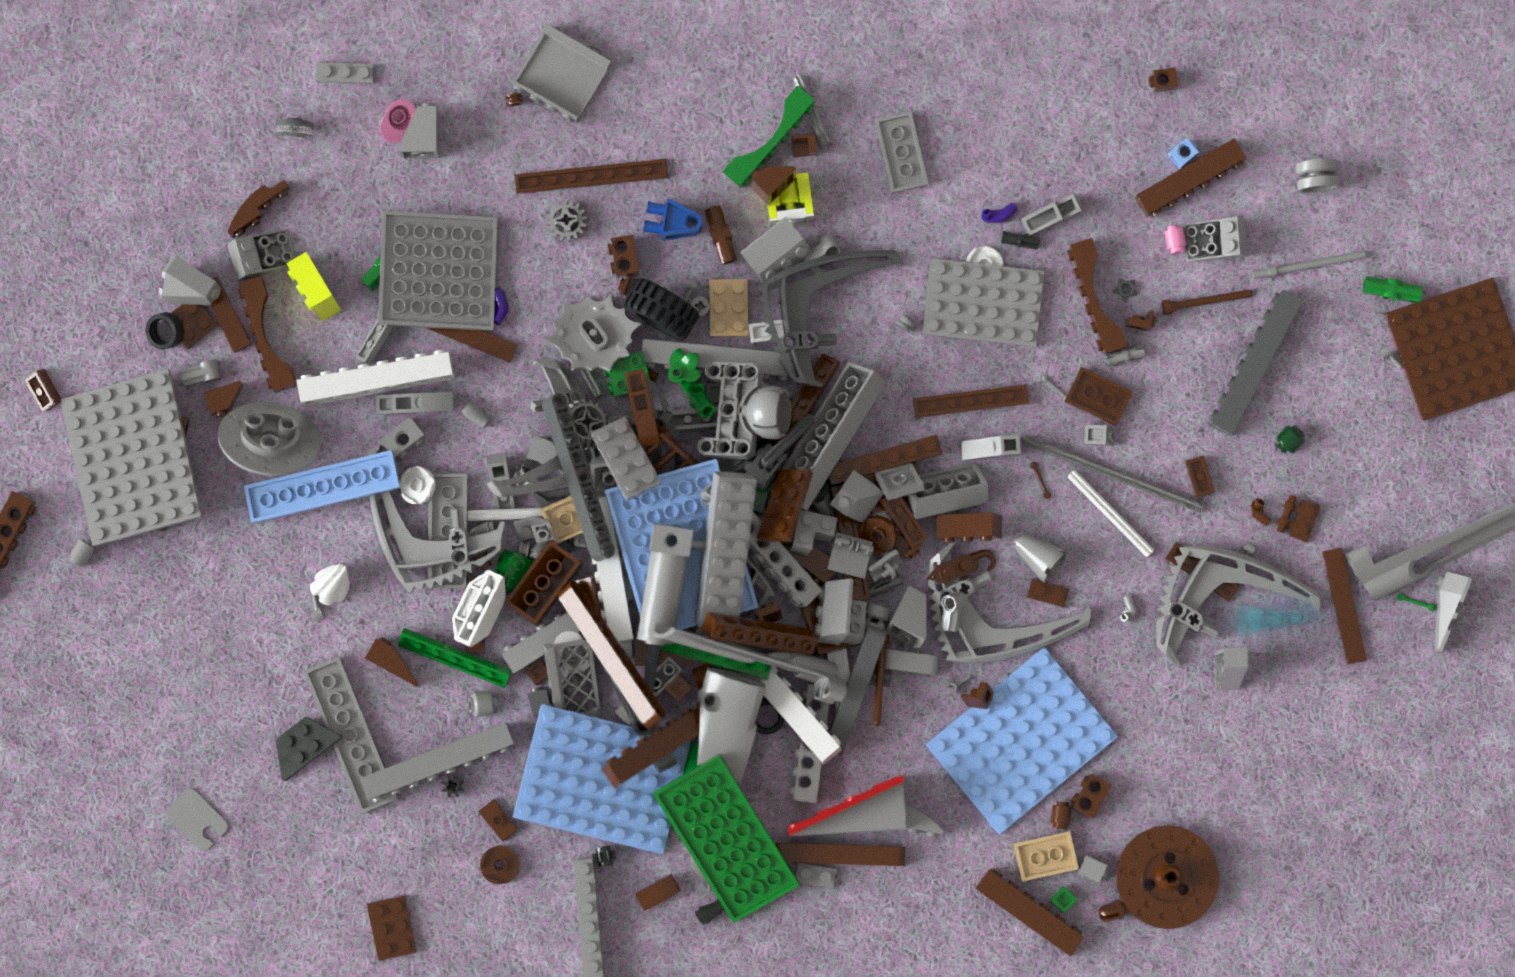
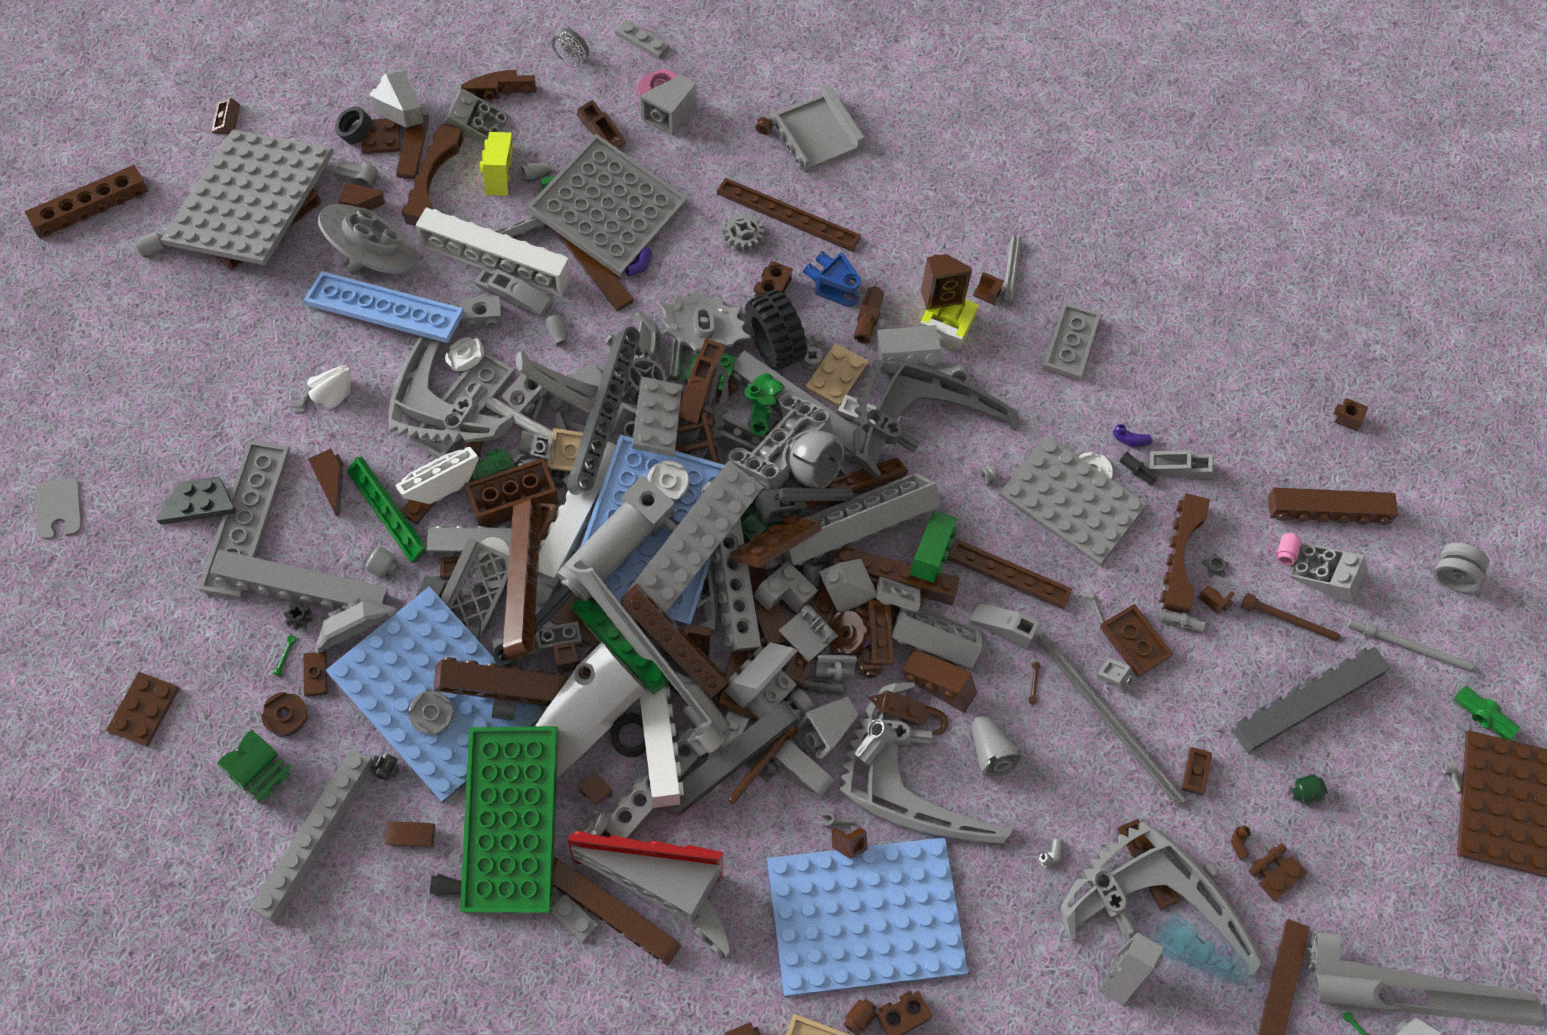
camera: 30 degrees right, 20 degrees down
(348, 274) = (533, 171): none -> light grey cone
(374, 191) = (600, 124): none -> reddish brown slope
(459, 805) = (291, 640): none -> green hinge
(486, 503) = (523, 386): none -> light grey brick
(502, 765) = (352, 621): none -> light grey wedge
(514, 919) = (254, 766): none -> green piece
(612, 801) = (430, 713): none -> light grey tile
(668, 505) = (670, 479): none -> white tile
(743, 167) = (1001, 253): green arch -> none
(769, 774) = (595, 788): none -> reddish brown panel
(787, 808) = (594, 823): none -> light grey tile
(901, 420) = (934, 546): none -> green brick
(1048, 593) = (979, 789): reddish brown plate -> none
(1110, 513) = (1087, 754): white axle -> none
(1180, 160) = (1342, 475): light blue brick -> none

